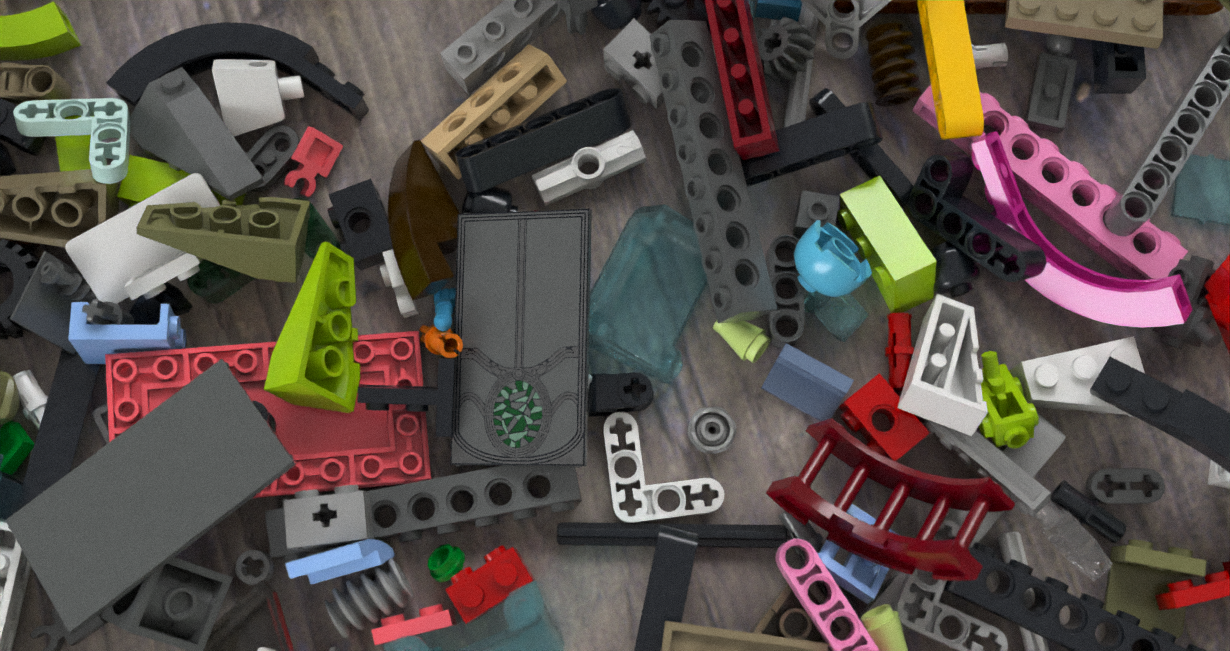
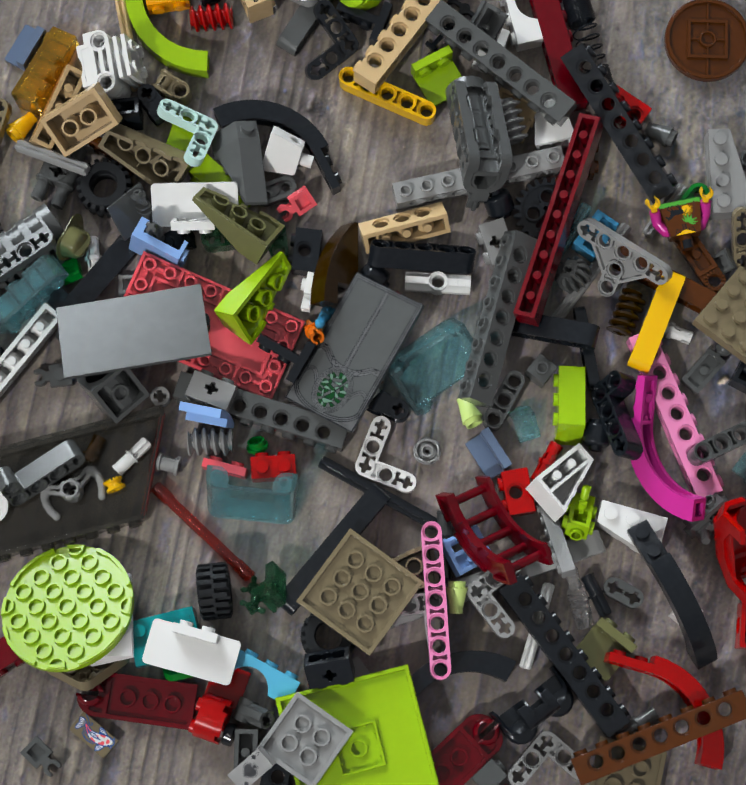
camera: 25 degrees right, 0 degrees up
(828, 261) = (532, 396): medium azure cylinder -> none

